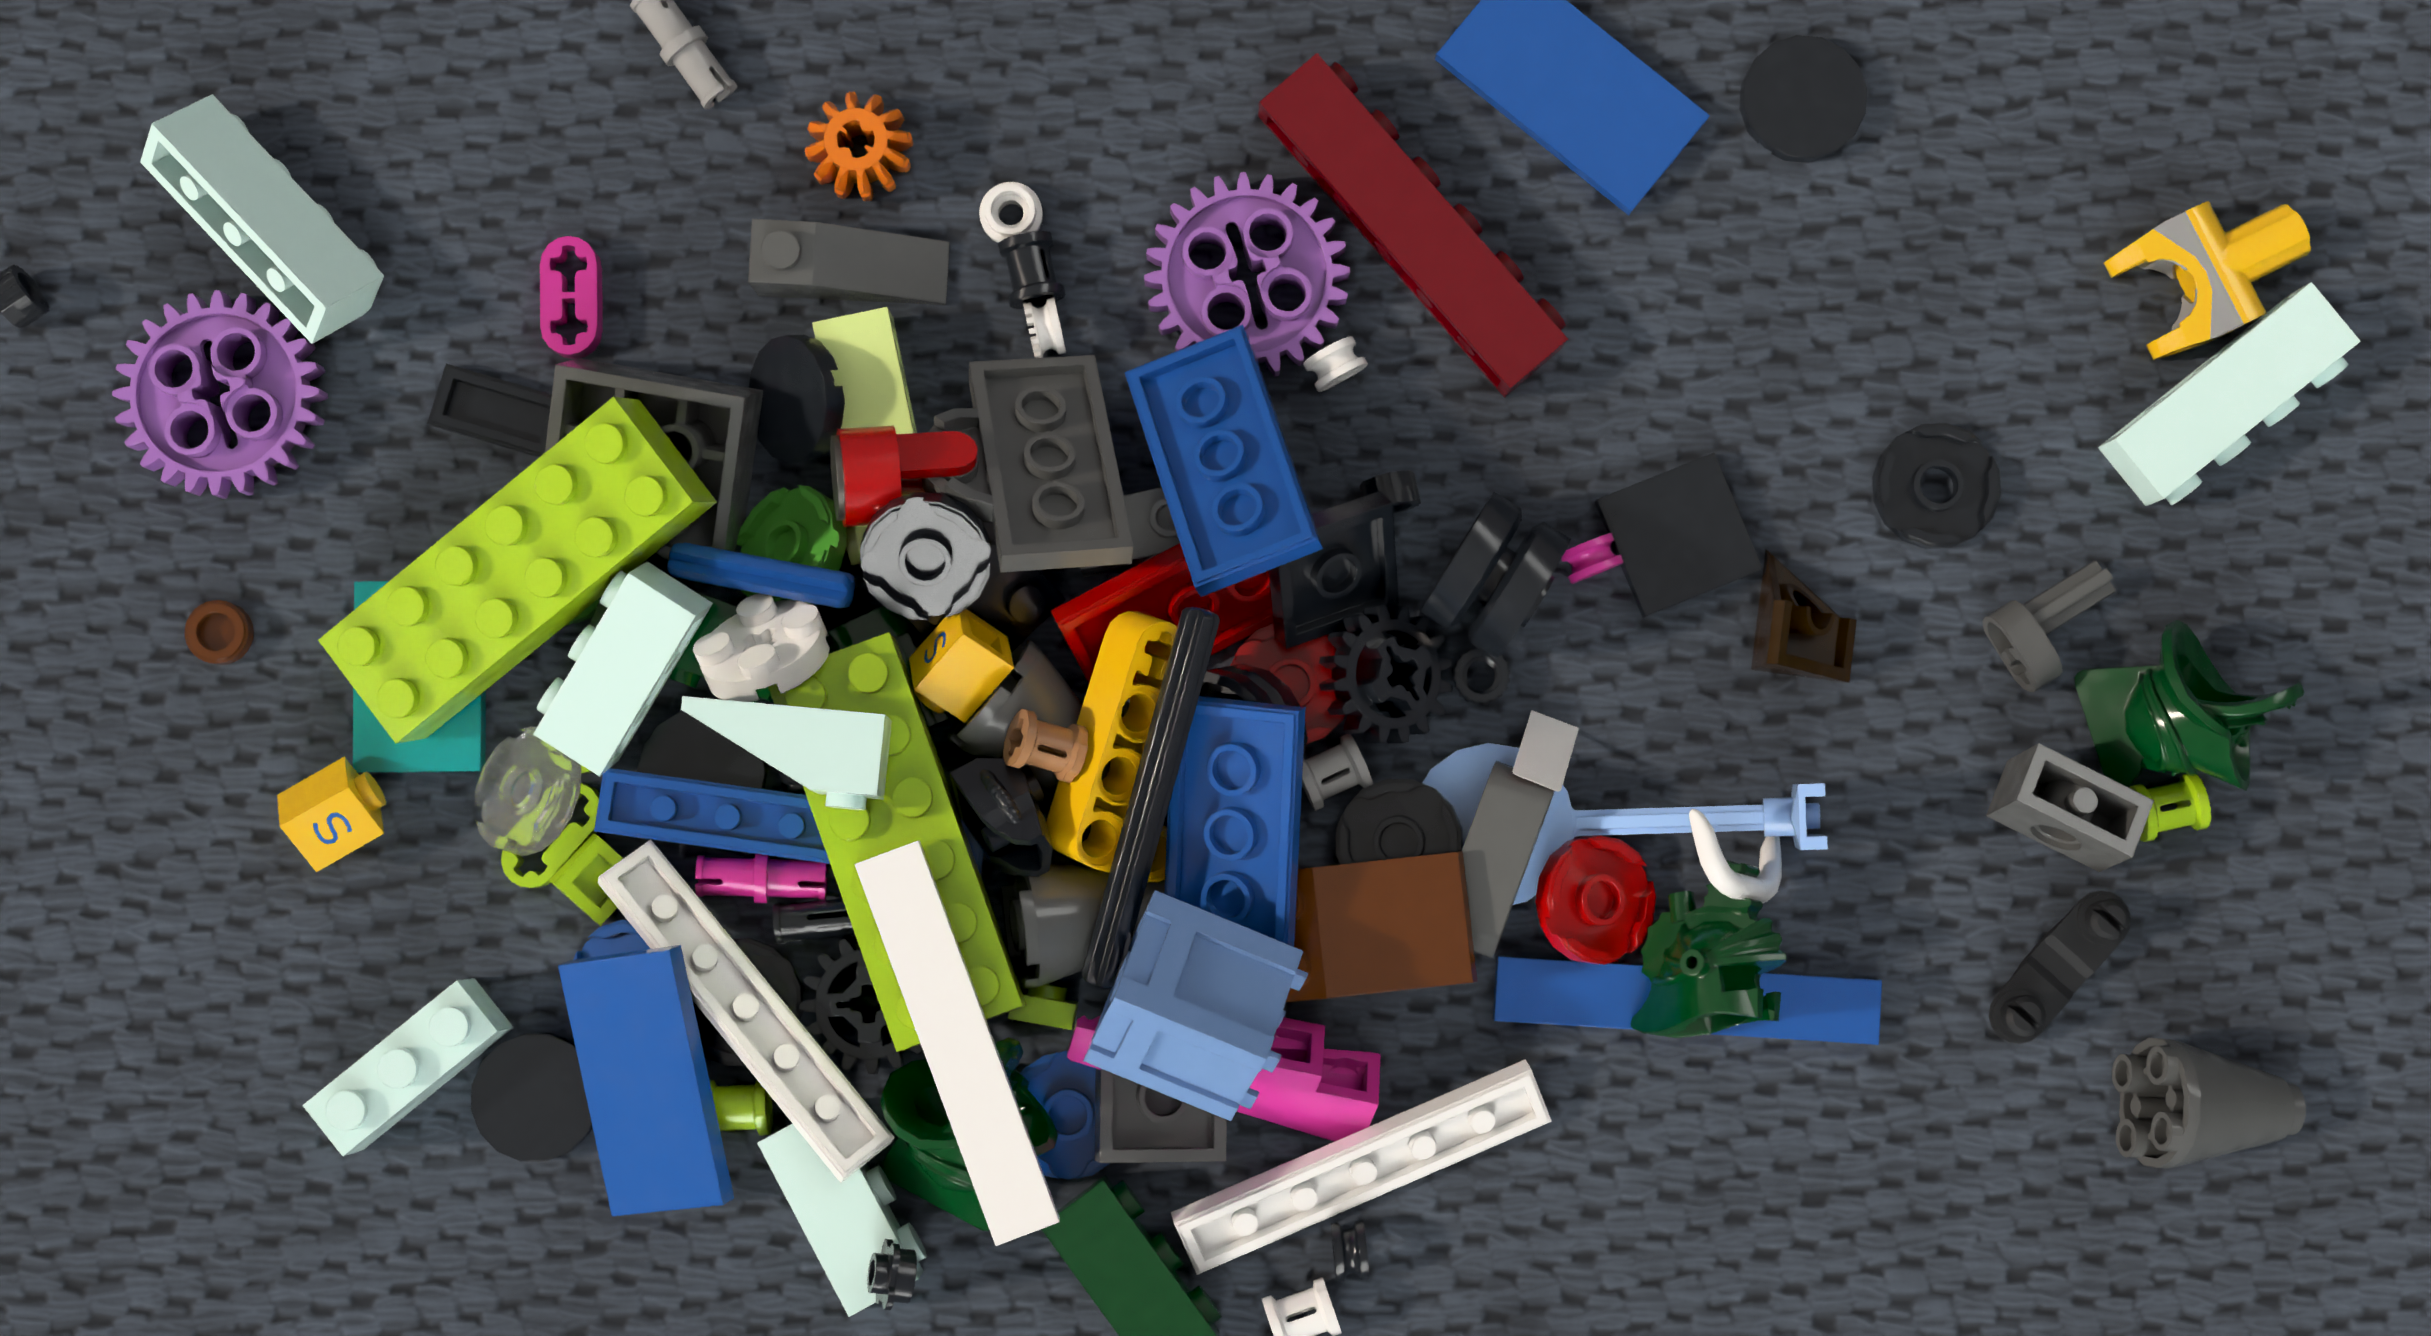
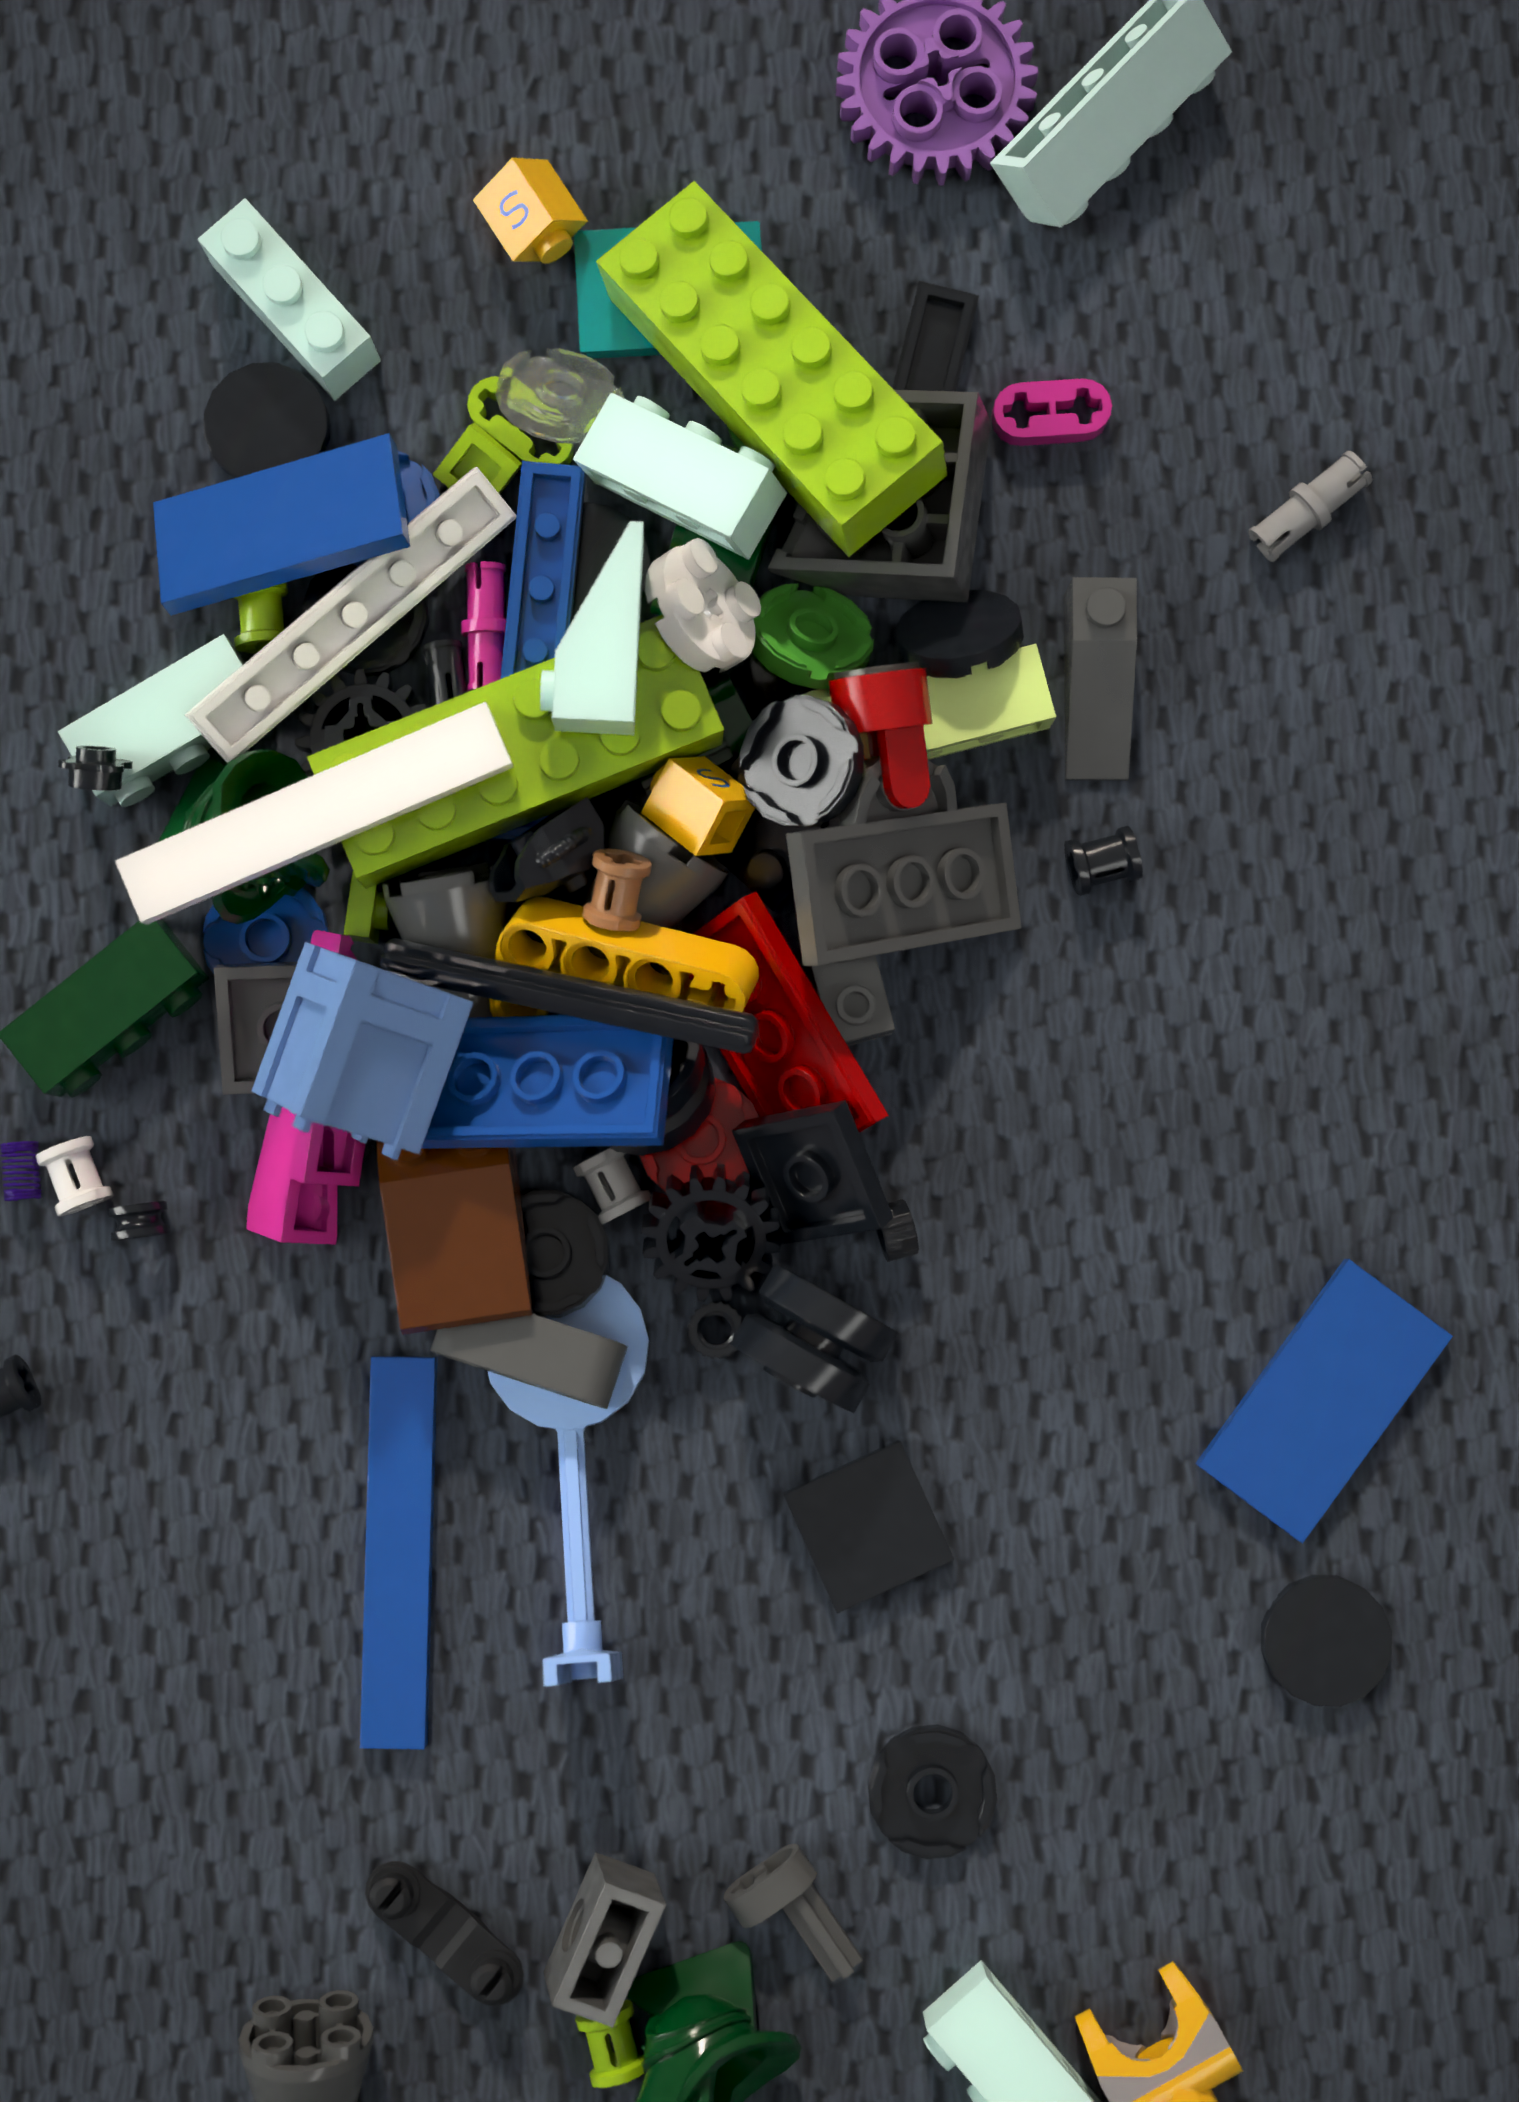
camera: 90 degrees right, 0 degrees up
(219, 632) = (705, 97): reddish brown tile -> none
(761, 575) = (777, 604): blue axle -> none
(837, 160) = (1238, 701): orange gear -> none
(1003, 195) = (1179, 833): white plate -> none
(1046, 327) = (1045, 878): white bush -> none
(1222, 461) = (913, 1055): blue tile -> none
(1300, 261) = (1127, 1129): medium lavender gear -> none
(1335, 363) = (1024, 1169): white bush -> none
(1361, 1166) = (222, 1229): white tile -> none
(1412, 224) = (1171, 1241): dark red brick -> none
(1545, 751) = (640, 1396): white sticker -> none
(1591, 558) = (839, 1437): dark pink bush -> none
(1595, 899) = (494, 1453): red tile -> none
(1712, 957) = (436, 1574): dark green helmet -> none
(1798, 630) = (778, 1653): dark brown slope -> none

